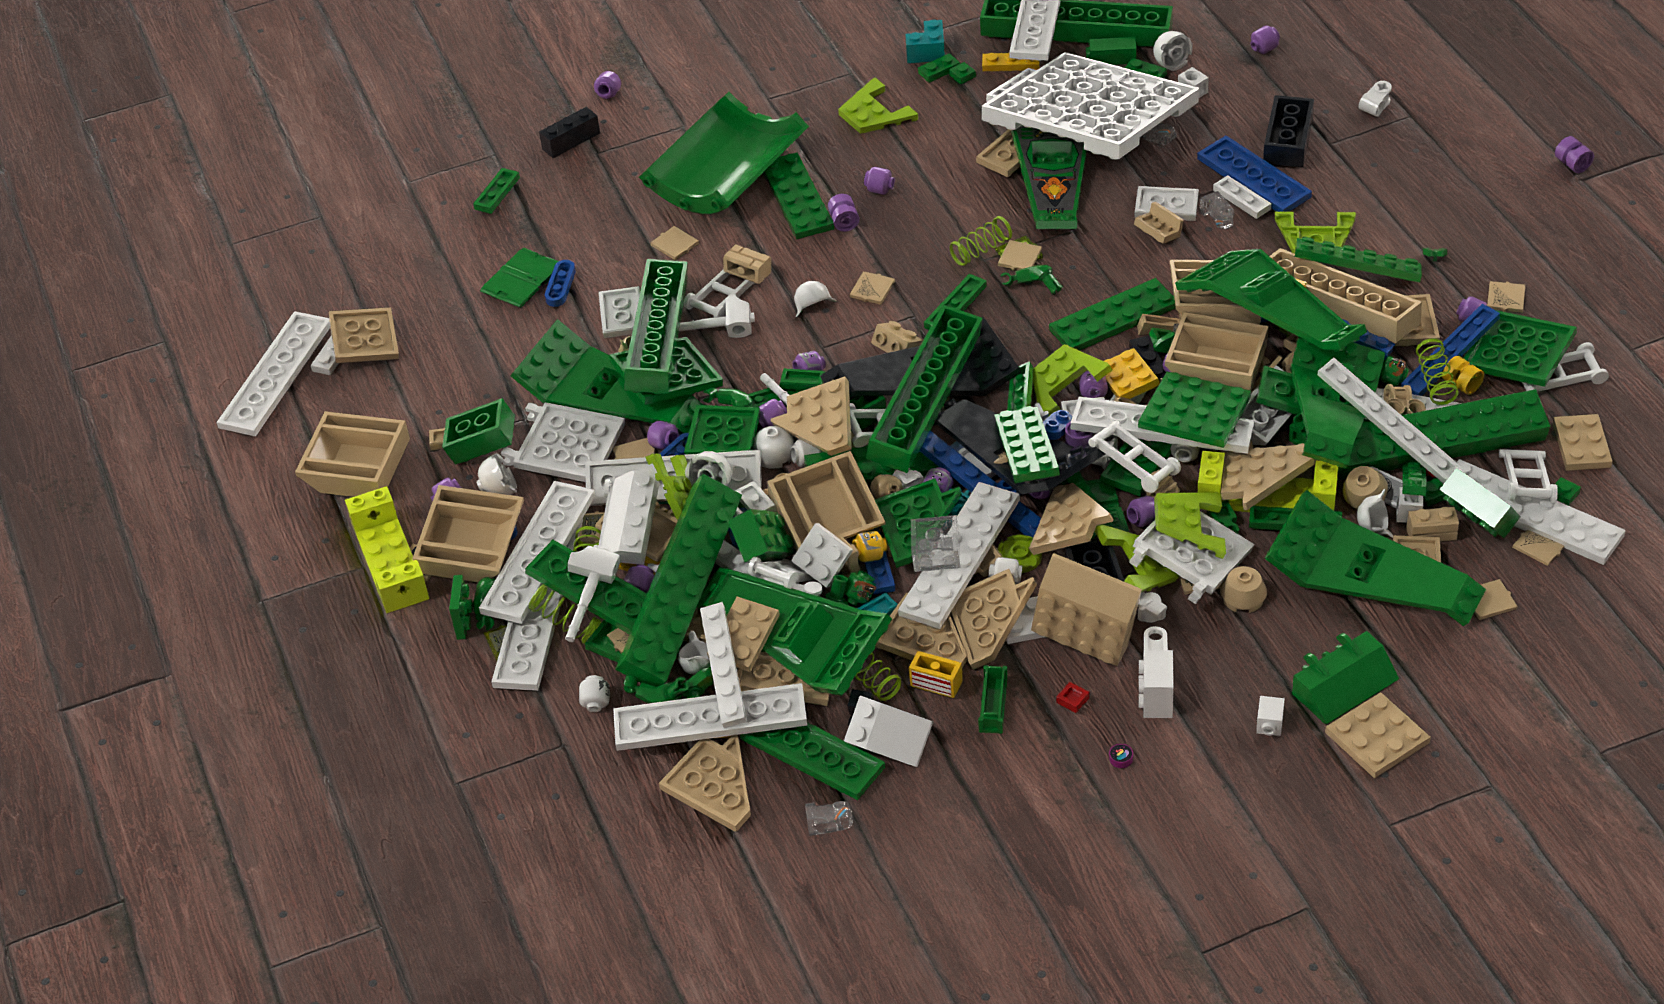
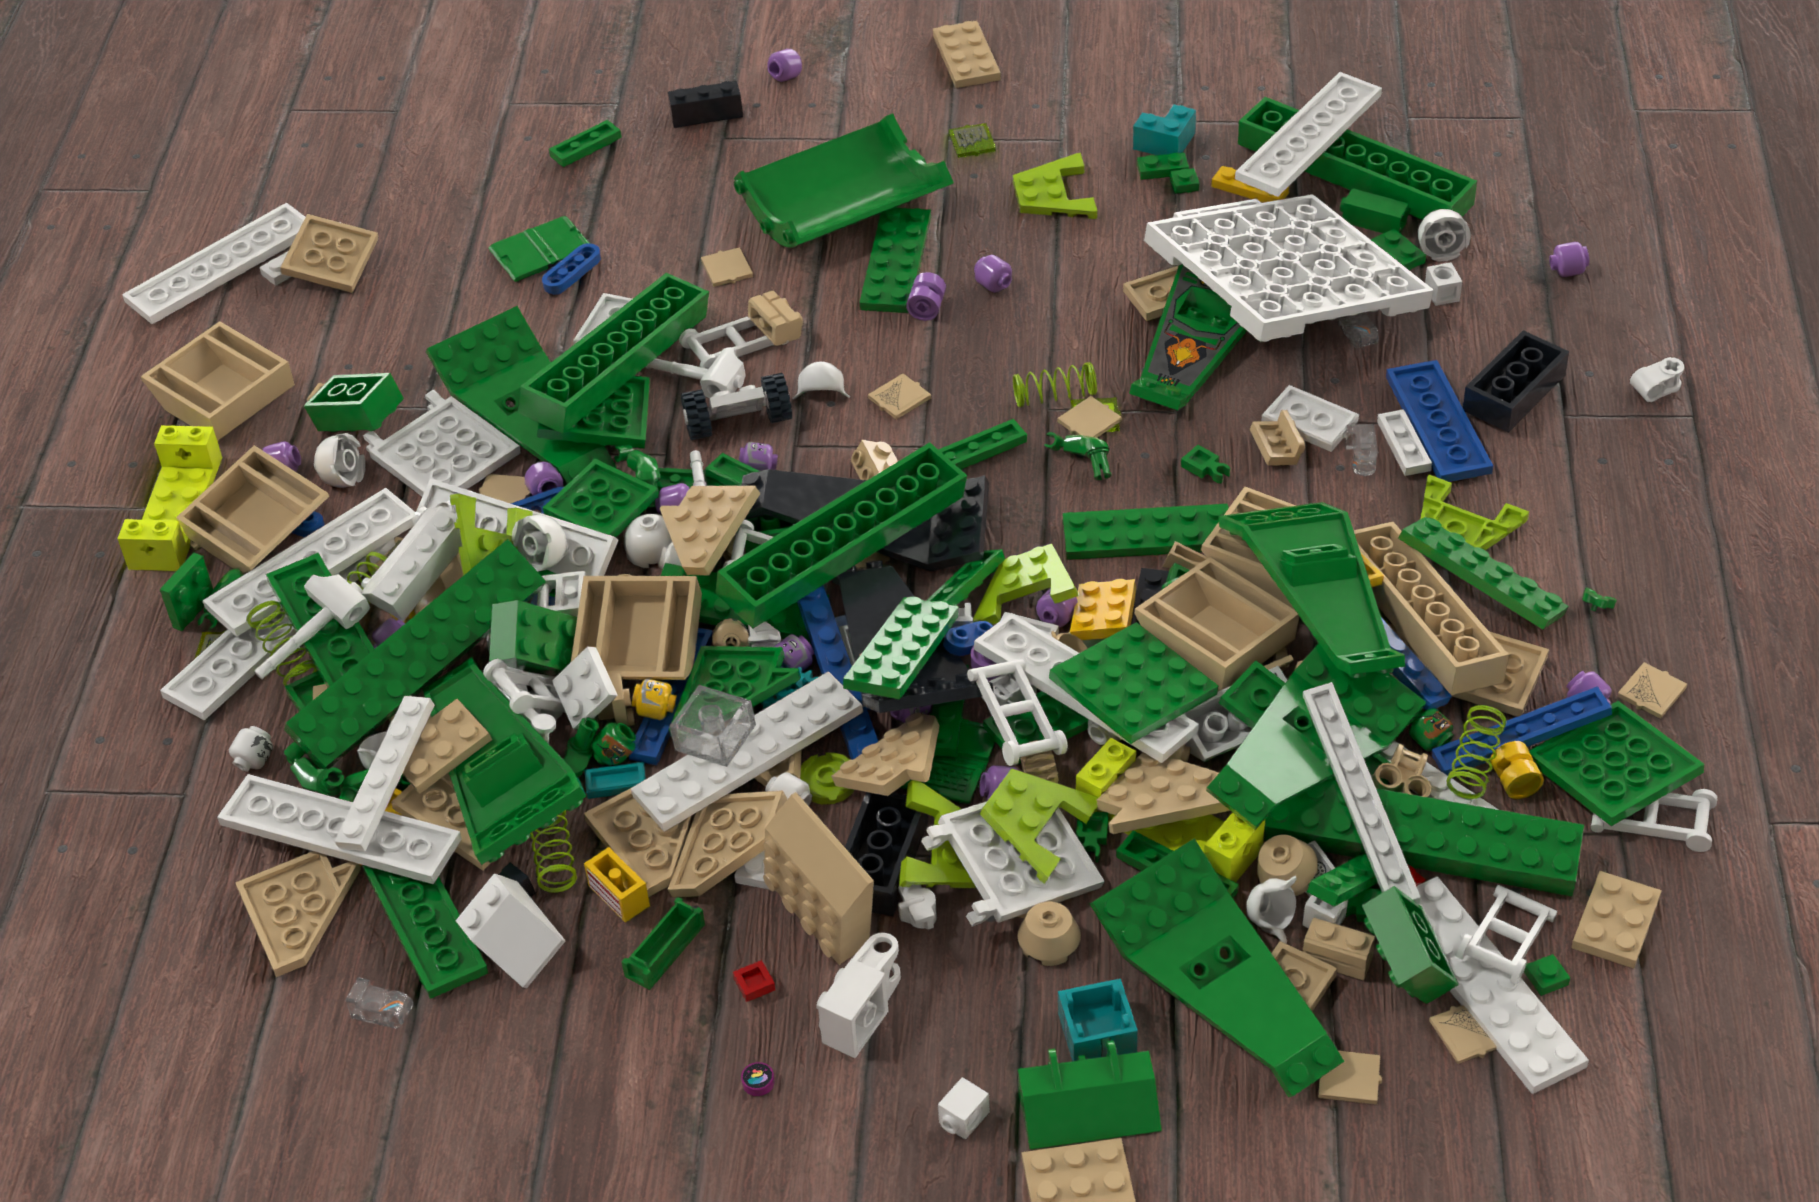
camera: 25 degrees right, 0 degrees up
(736, 34) = (966, 54): none -> tan plate
(744, 345) = (749, 399): none -> black plate
(786, 94) = (972, 140): none -> piece
(1120, 257) = (1204, 462): none -> green plate
(1315, 628) = (1097, 1015): none -> teal container

